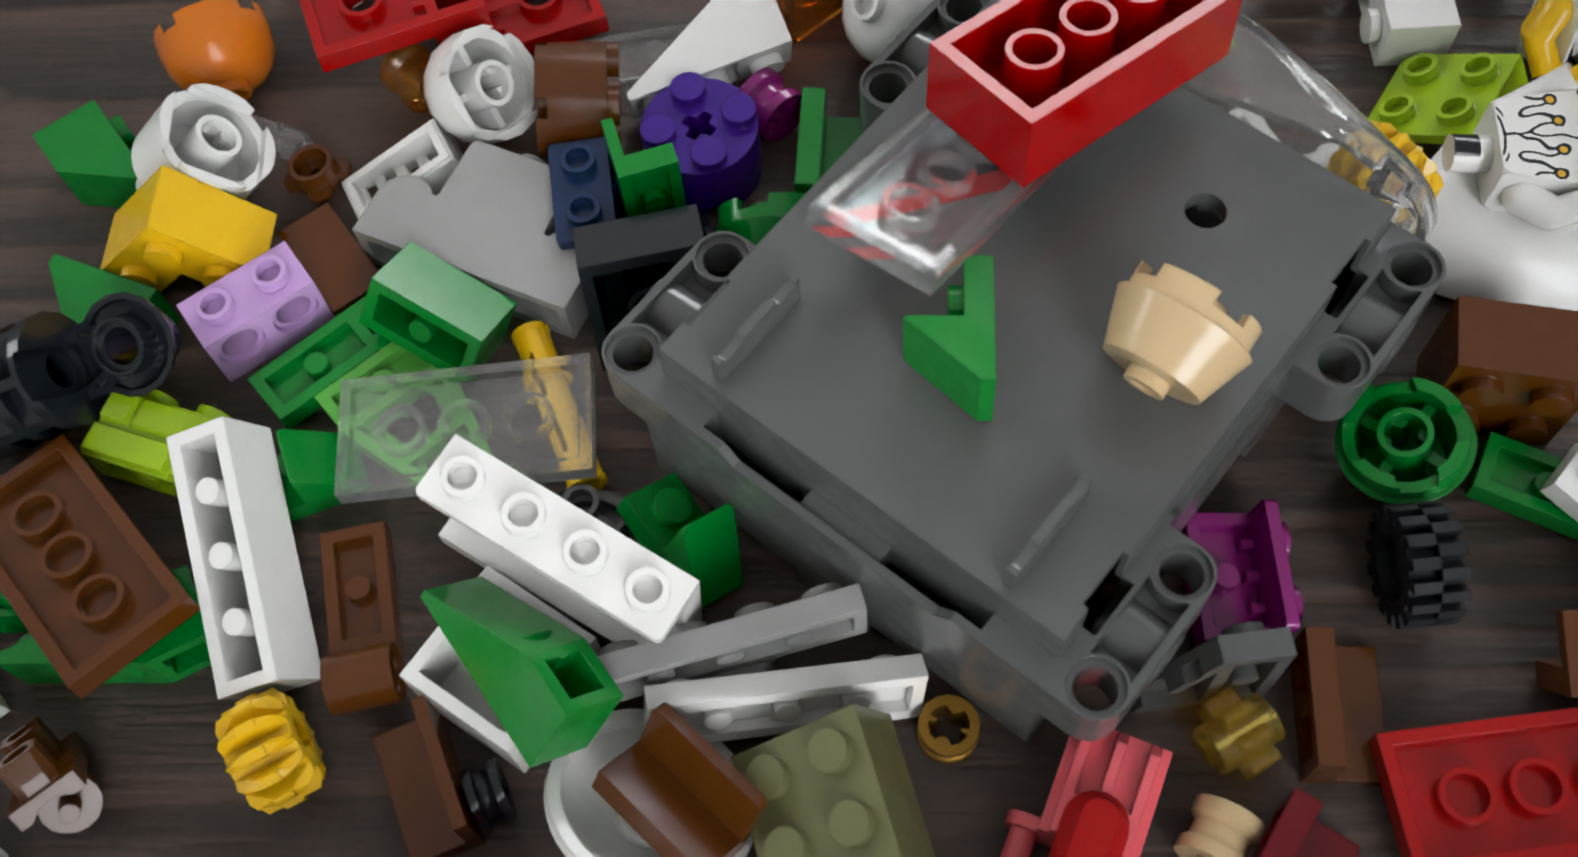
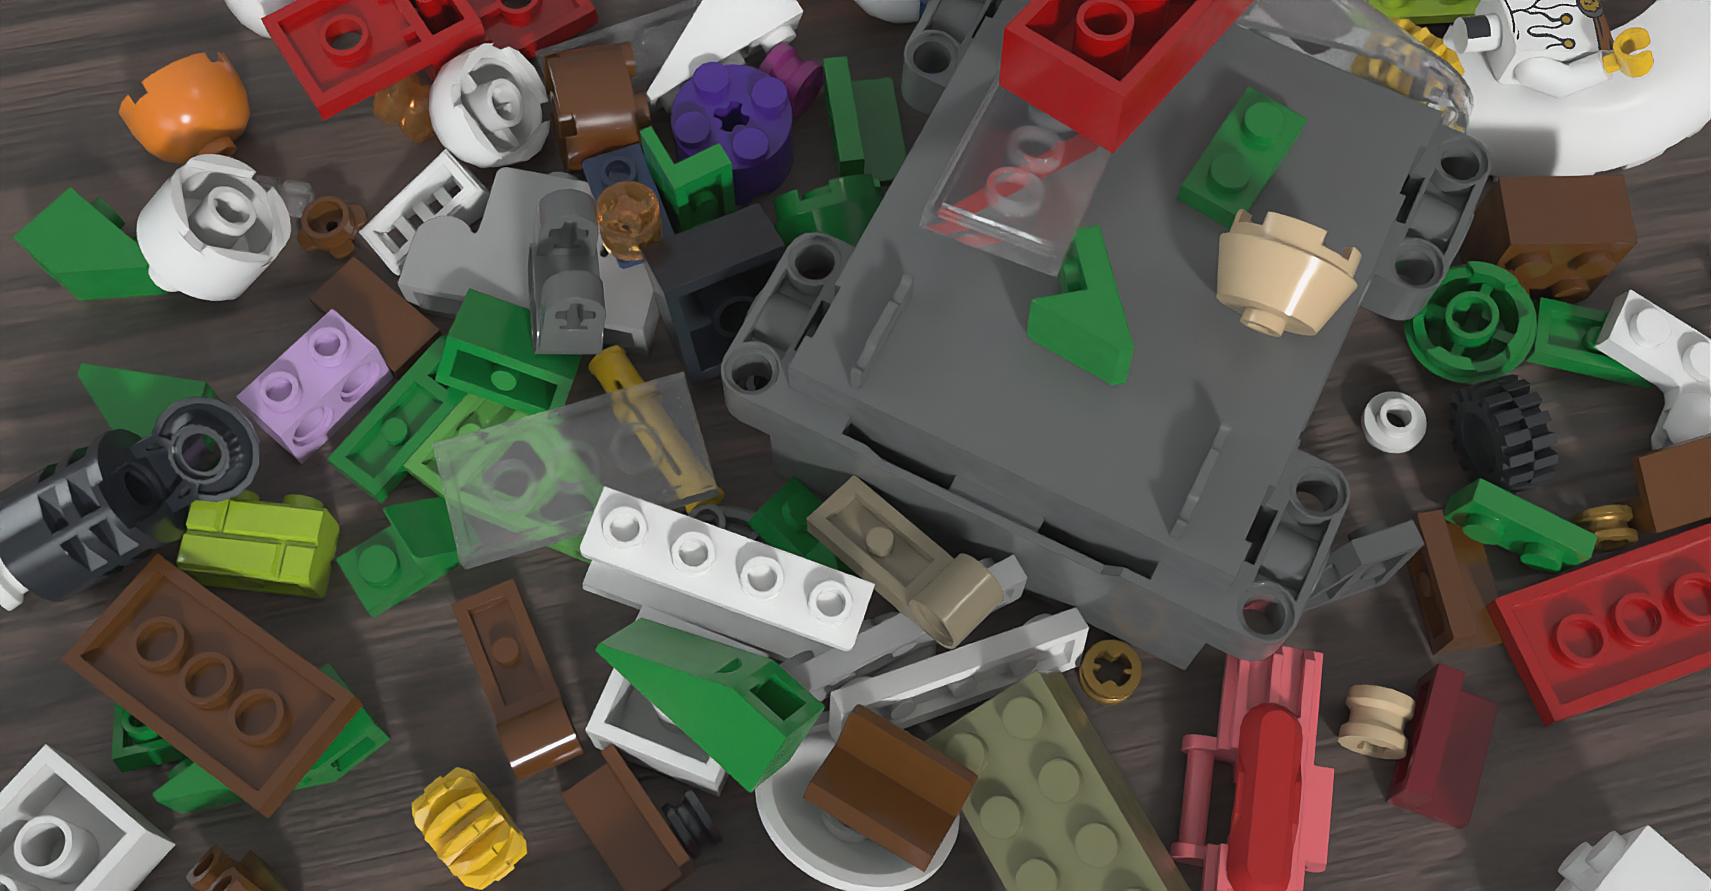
camera: 20 degrees left, 5 degrees up
(184, 229) = (216, 314): yellow brick -> none
(243, 558) = (388, 644): white brick -> none
(495, 241) = (565, 276): none -> dark grey piece
(557, 192) = (629, 205): none -> clear orange wheel
(743, 570) = (907, 567): none -> dark tan plate
(1169, 217) = (1241, 157): none -> green plate
(1239, 734) = (1375, 624): clear yellow gear -> none
(1251, 570) = (1358, 448): magenta bracket -> none
(1311, 549) = (1382, 433): none -> white plate
(1433, 672) = (1504, 519): none -> green plate
(1516, 684) = (1609, 525): none -> pearl gold bush

